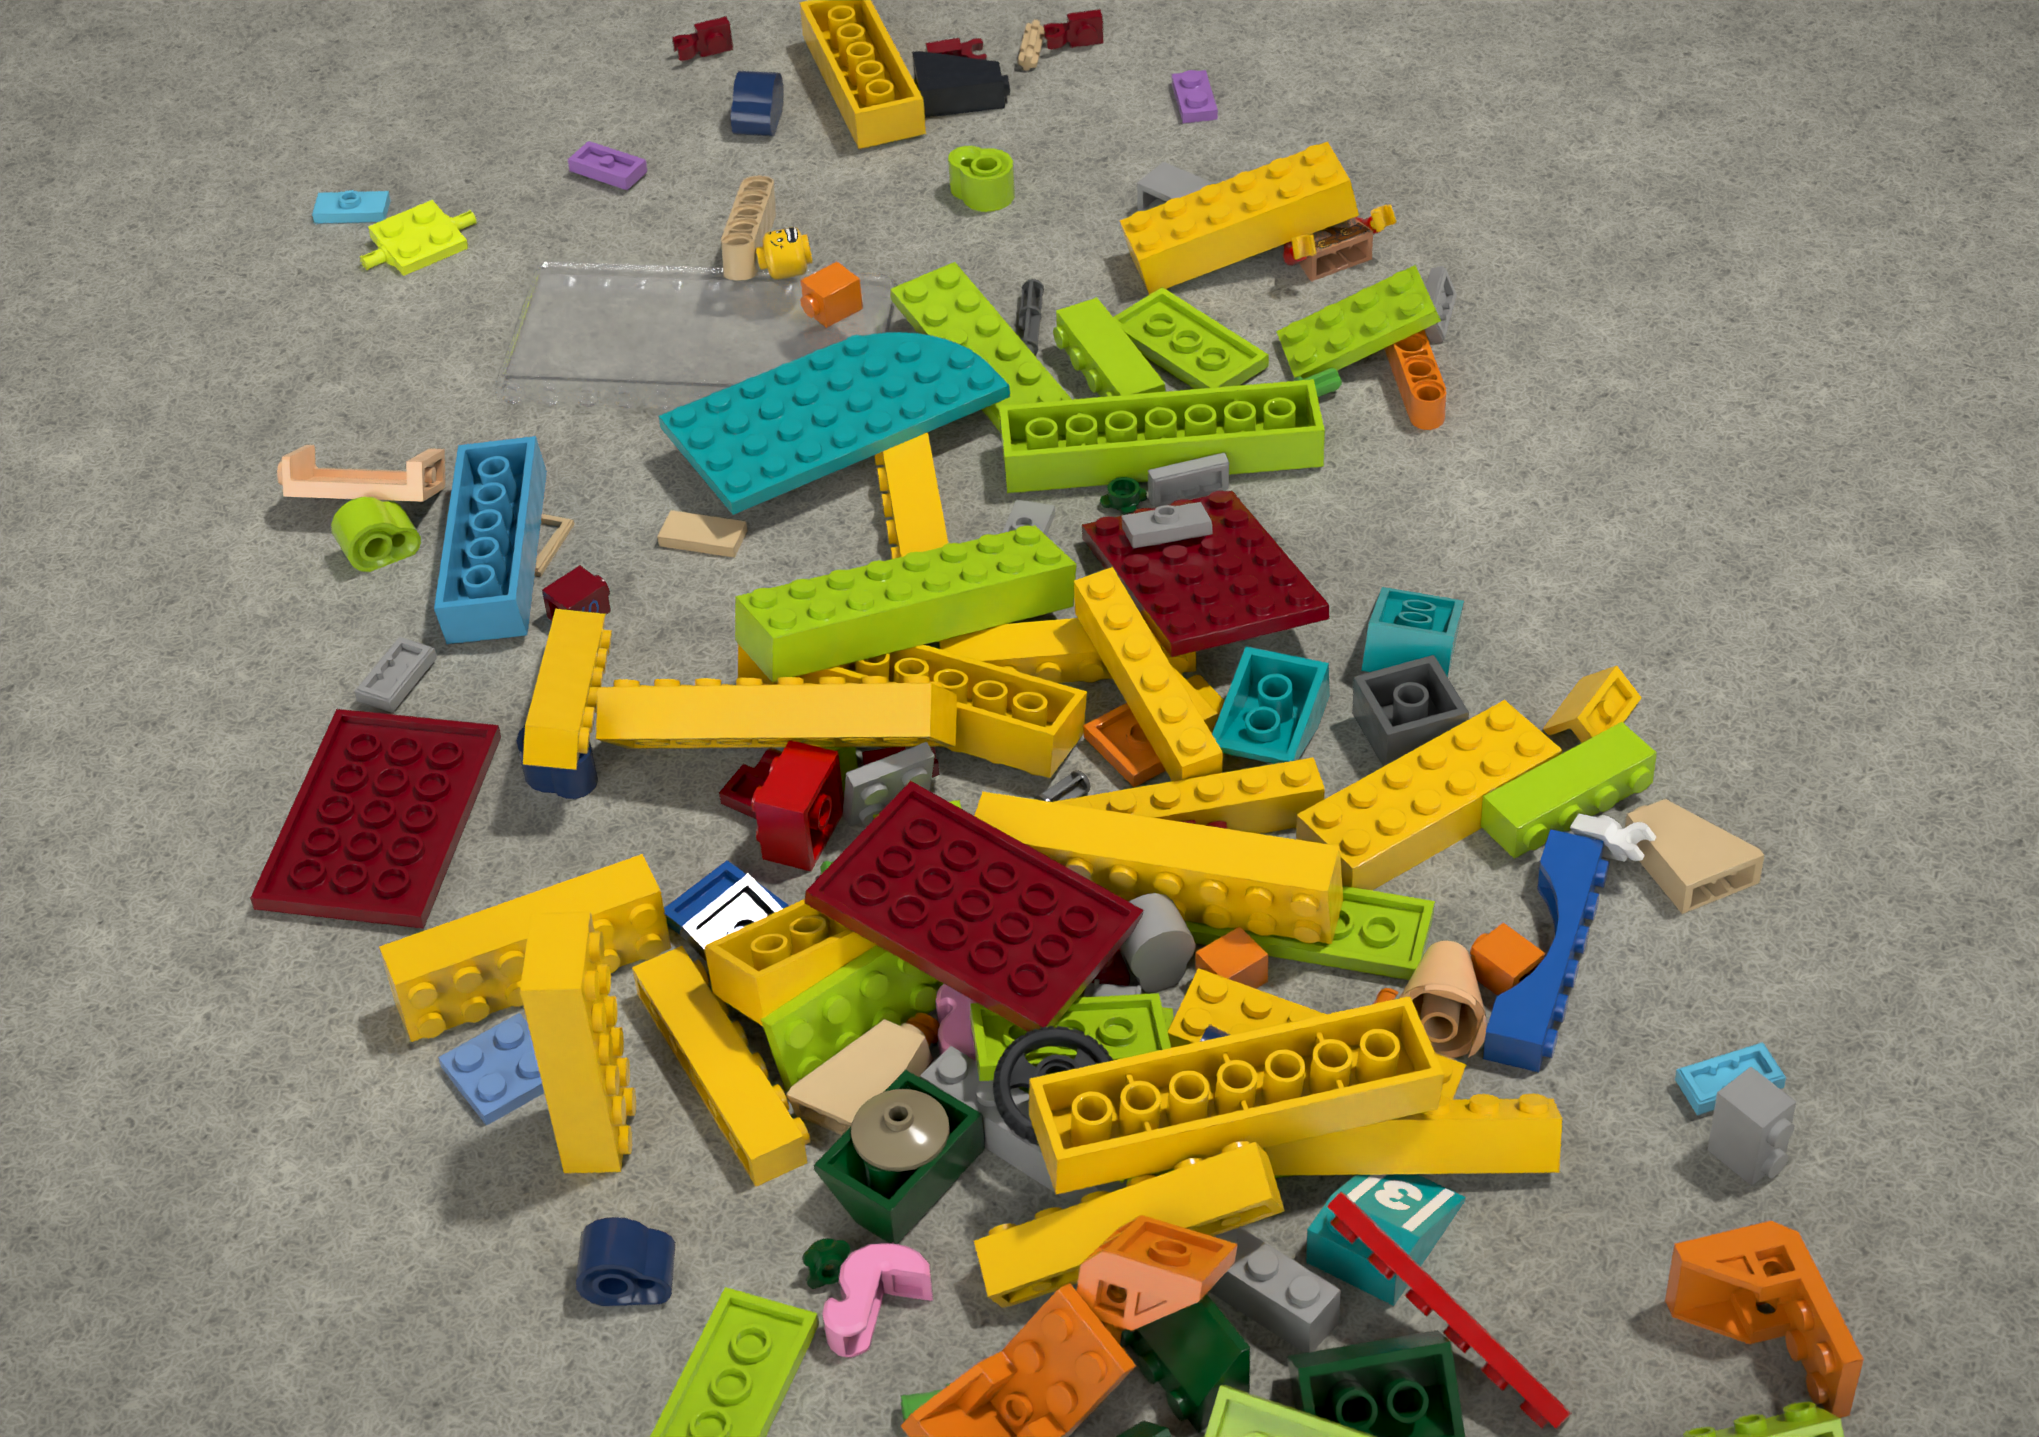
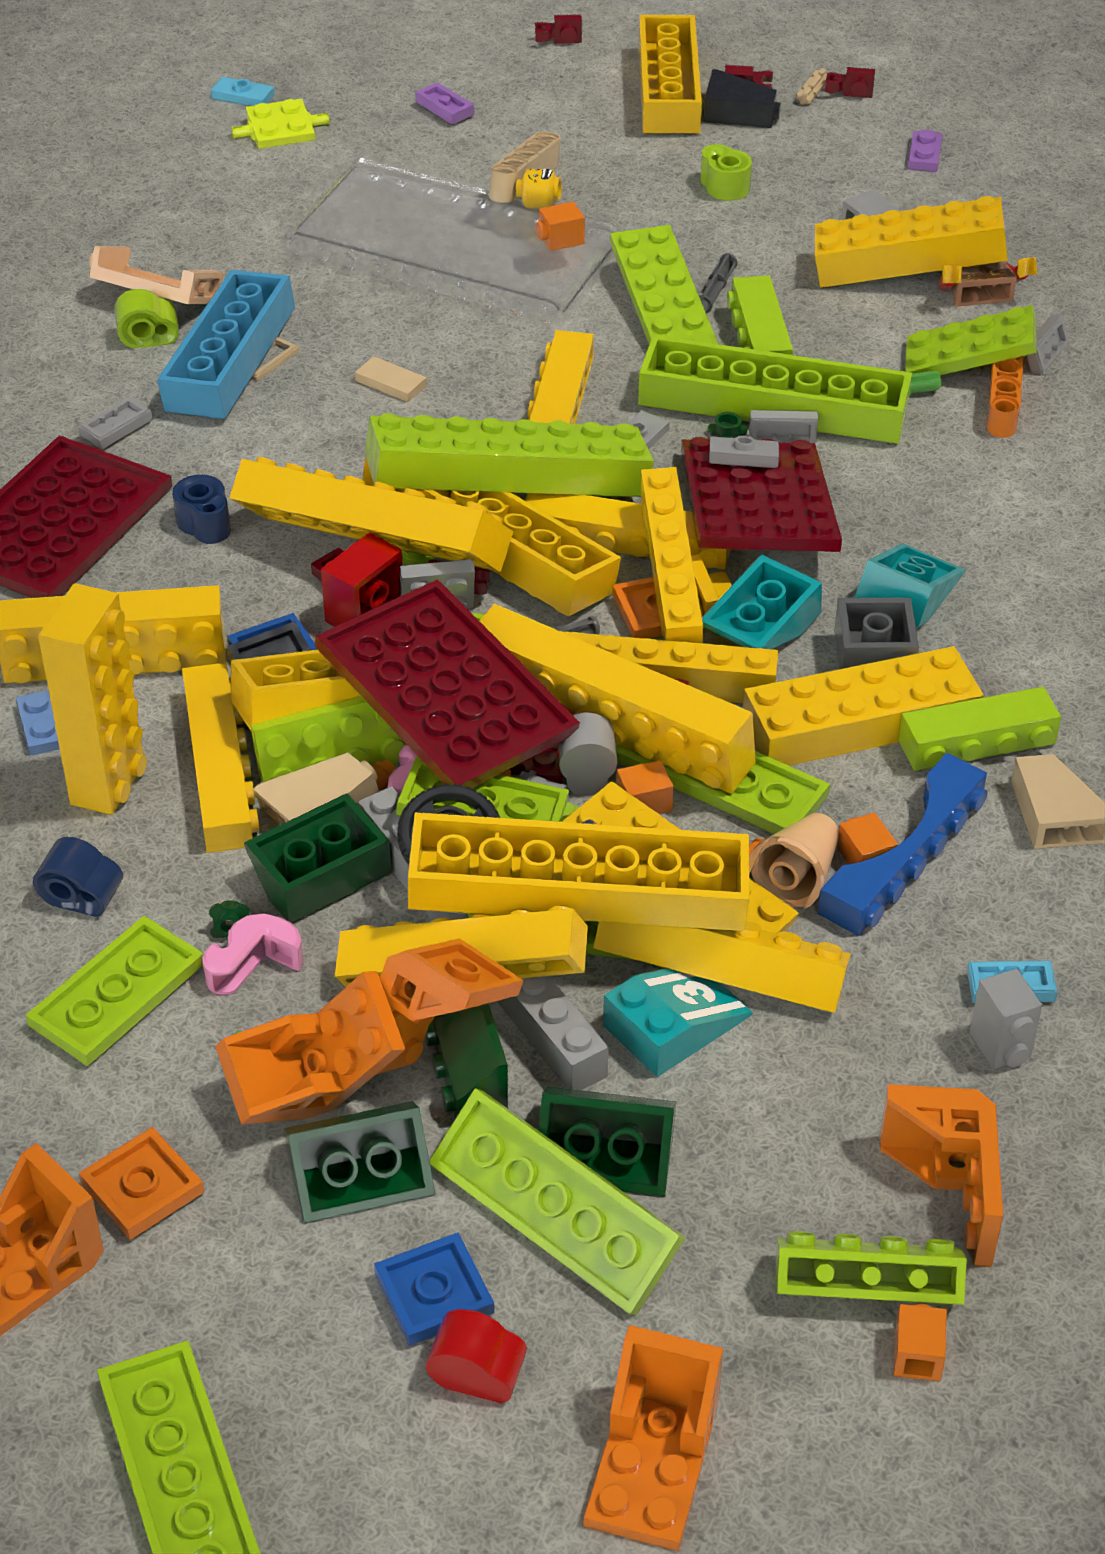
camera: 15 degrees right, 0 degrees up
(567, 690) = (213, 463): yellow brick -> none
(577, 592) = (272, 402): dark red brick -> none
(757, 103) = (577, 81): dark blue piece -> none
(828, 412) = (521, 310): teal plate -> none
(903, 1143) = (320, 835): dark tan dish -> none
(1190, 342) = (832, 326): lime plate -> none
(1462, 1328) = (692, 1101): red plate -> none
(1595, 704) = (1042, 667): yellow panel -> none
(1618, 841) = (999, 775): white plate -> none

